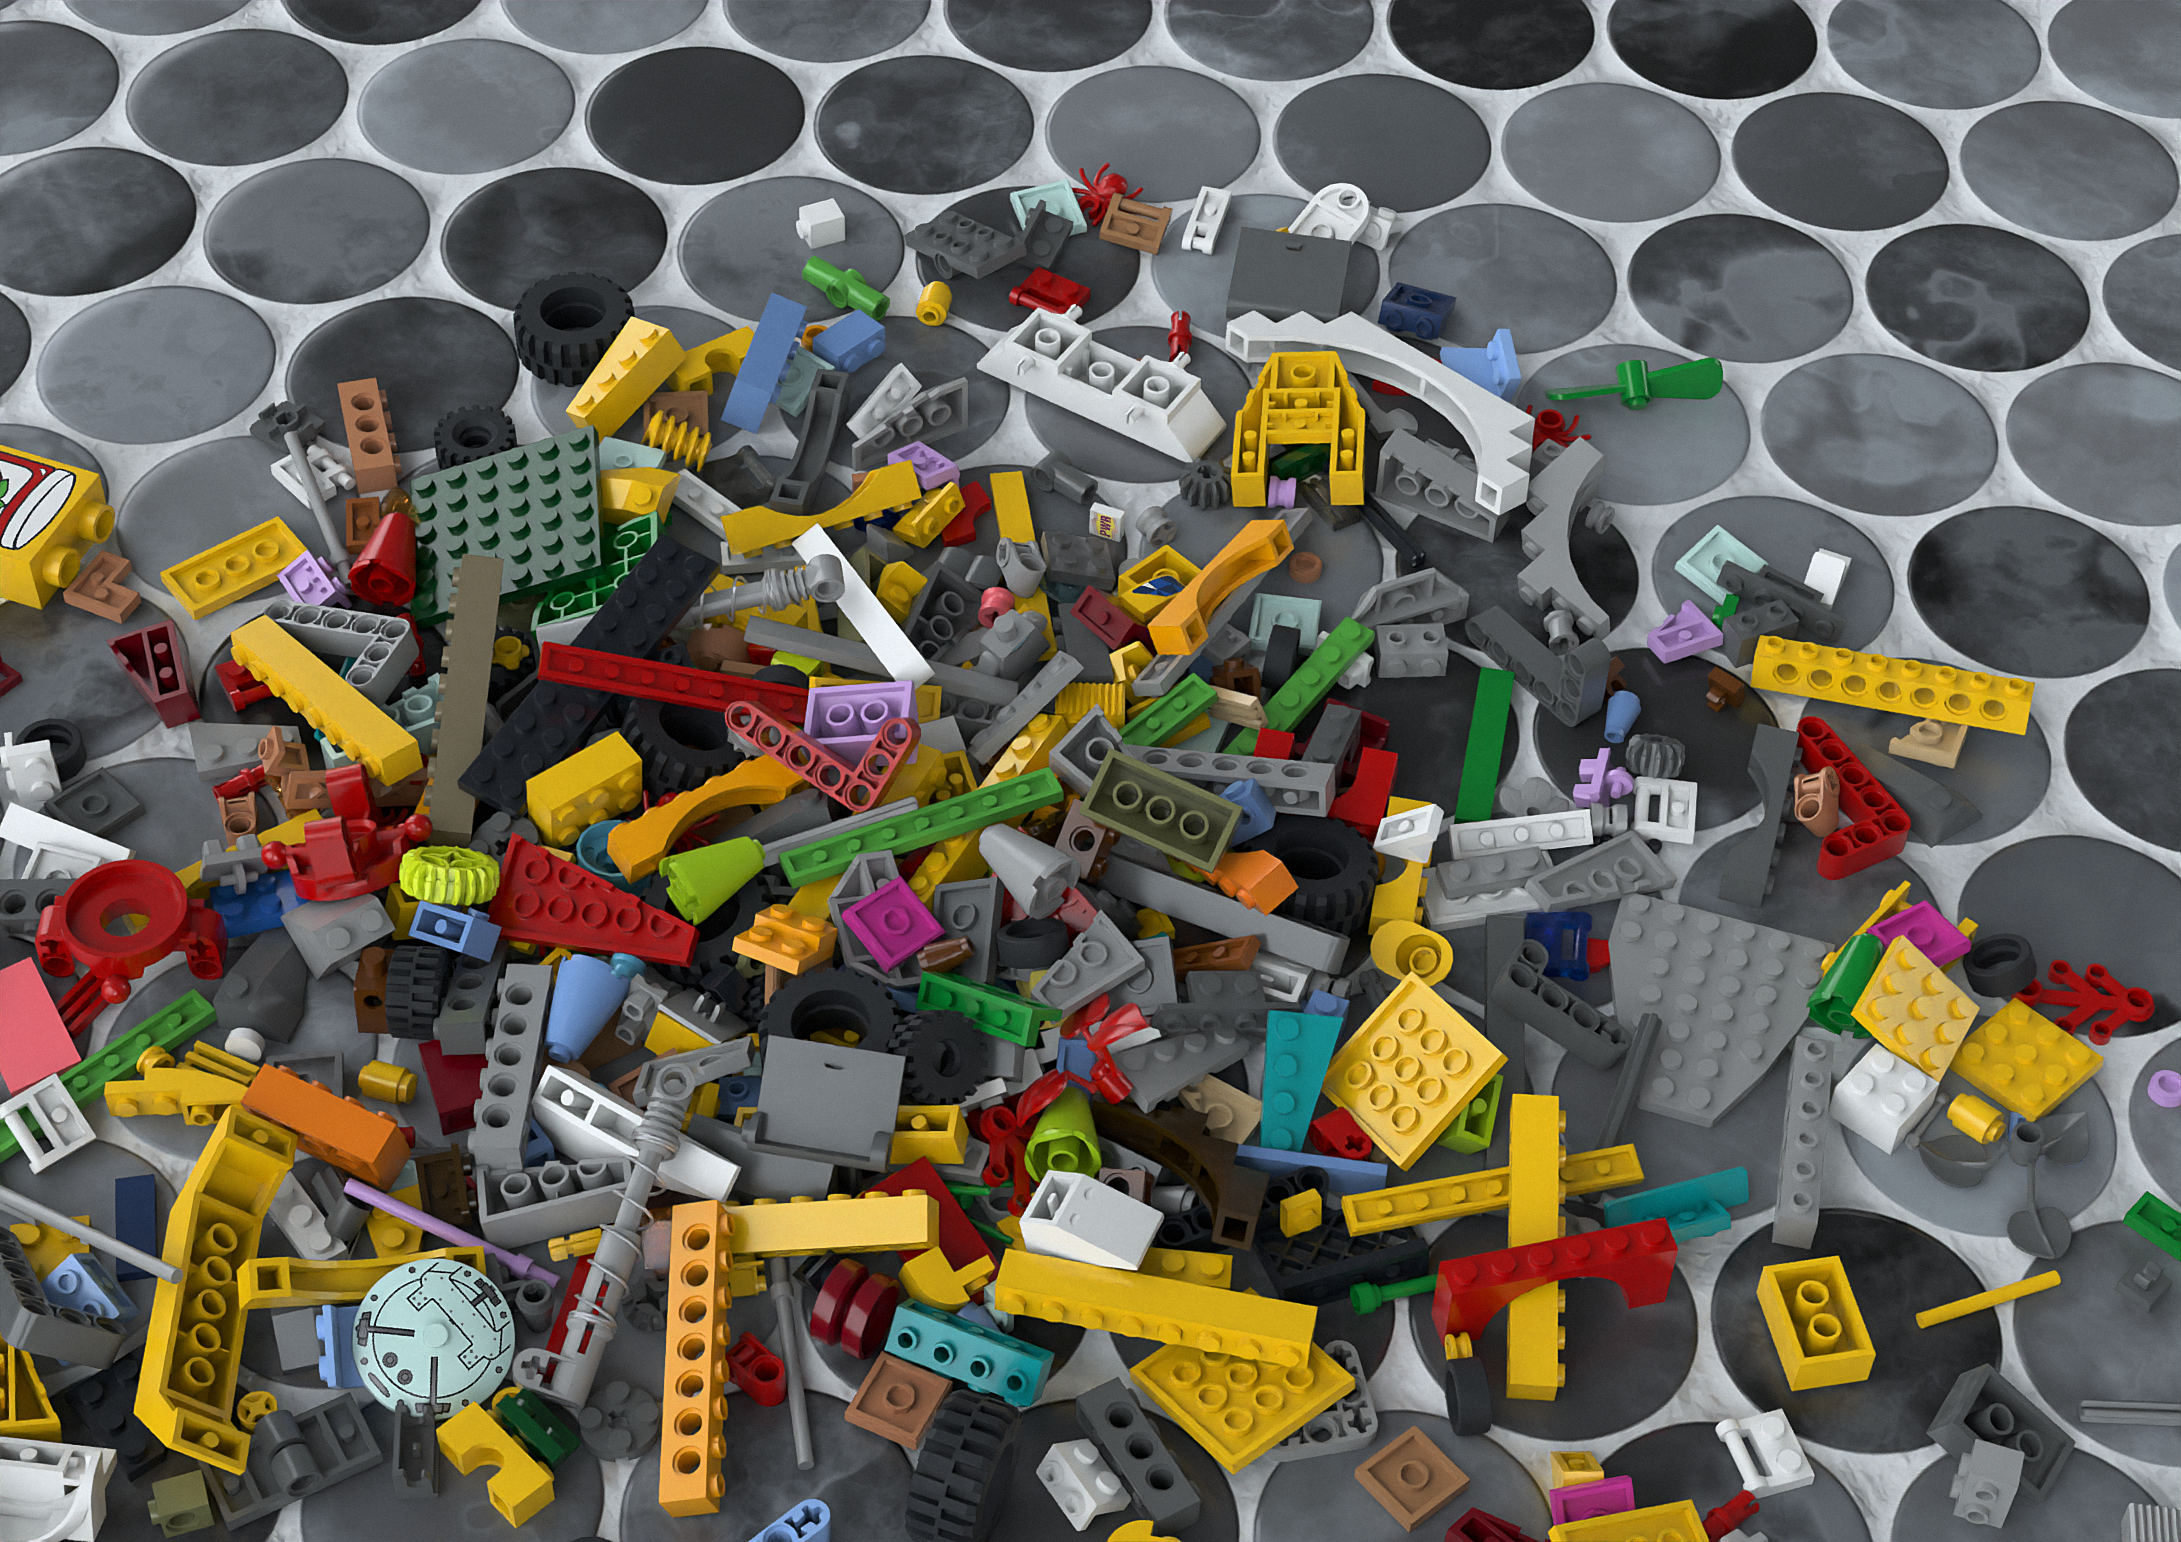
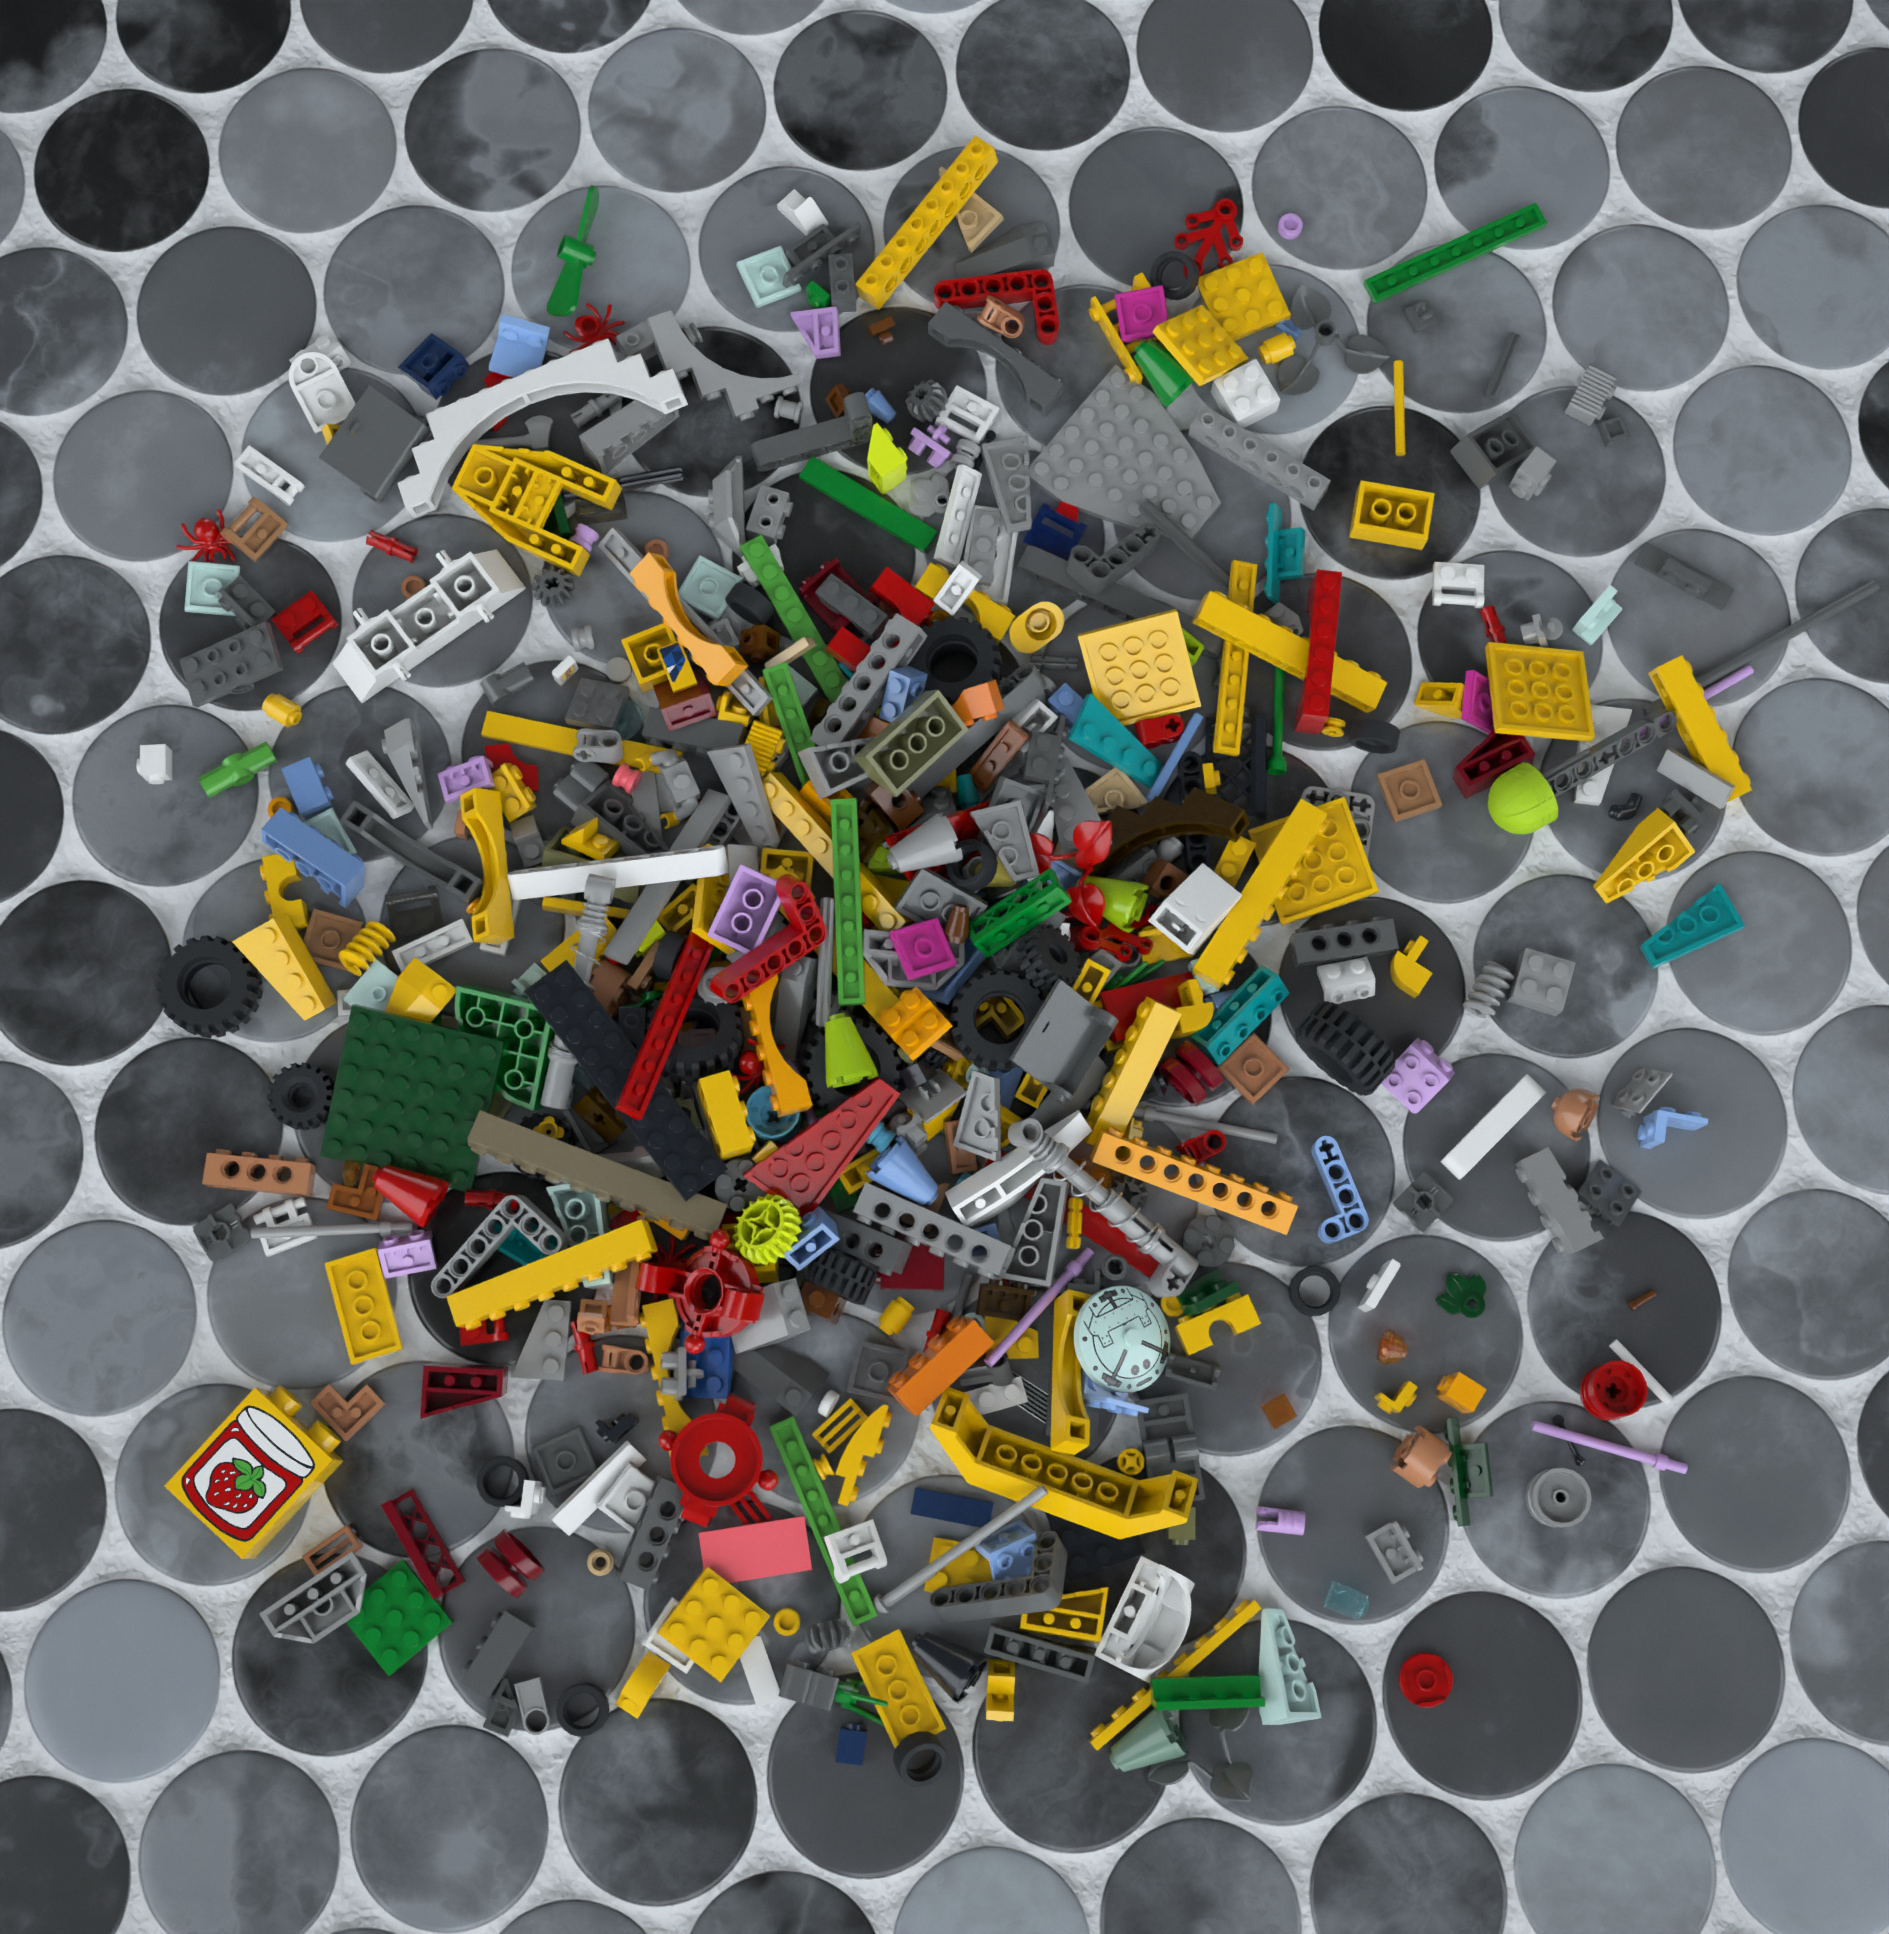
camera: 70 degrees left, 30 degrees up
(150, 840) = (621, 1424): none -> black bracket
(1546, 730) = (885, 461): none -> neon yellow slope

